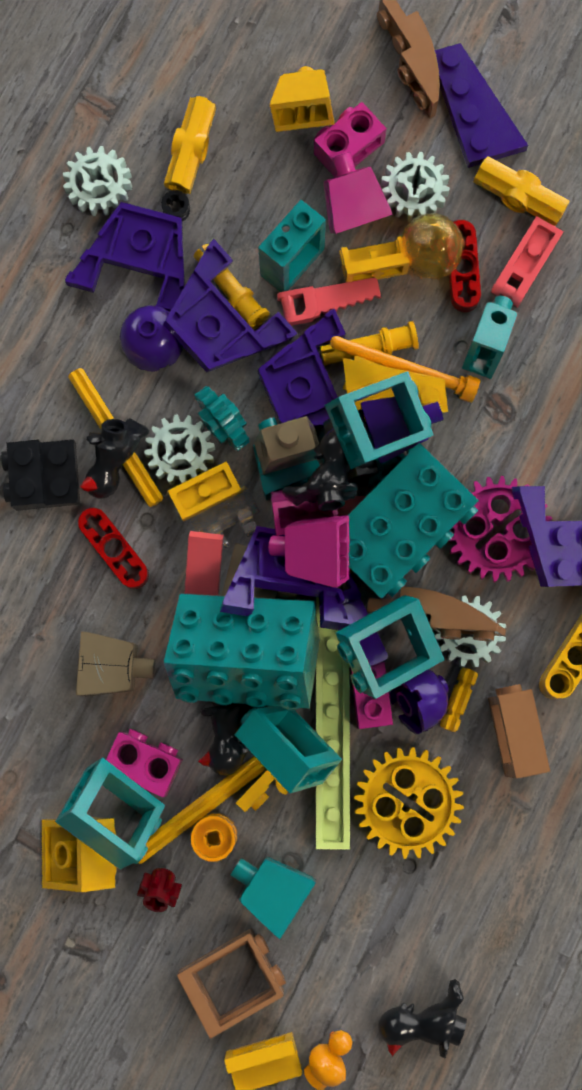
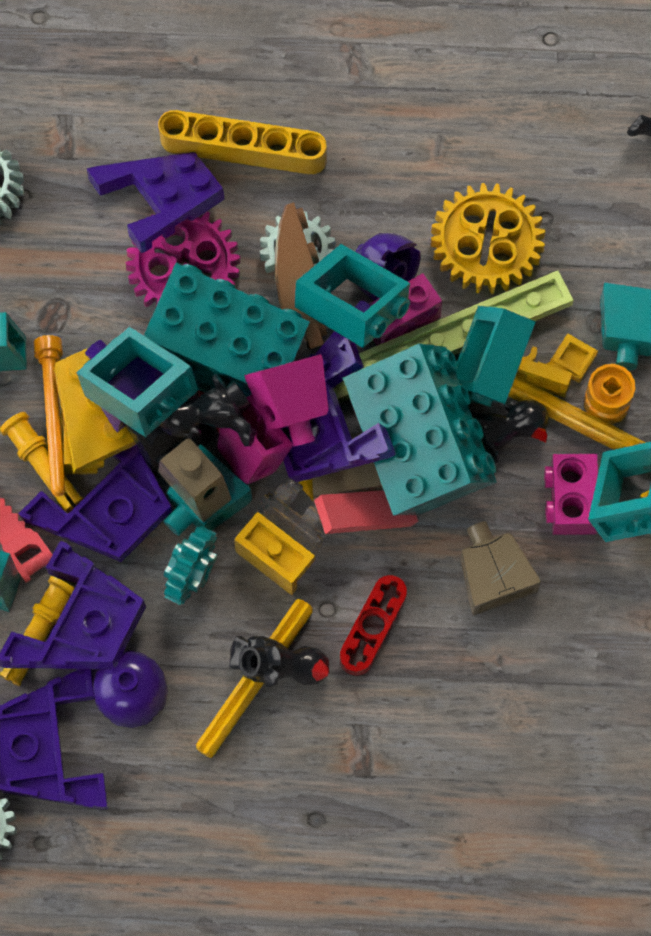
camera: 115 degrees left, 10 degrees down
(41, 474) = (330, 734): black plate -> none
(170, 459) = (226, 596): light aqua gear -> none
(267, 825) = (575, 356): none -> yellow tile
(459, 699) = (361, 233): yellow axle -> none
(518, 732) = (375, 163): medium nougat window -> none

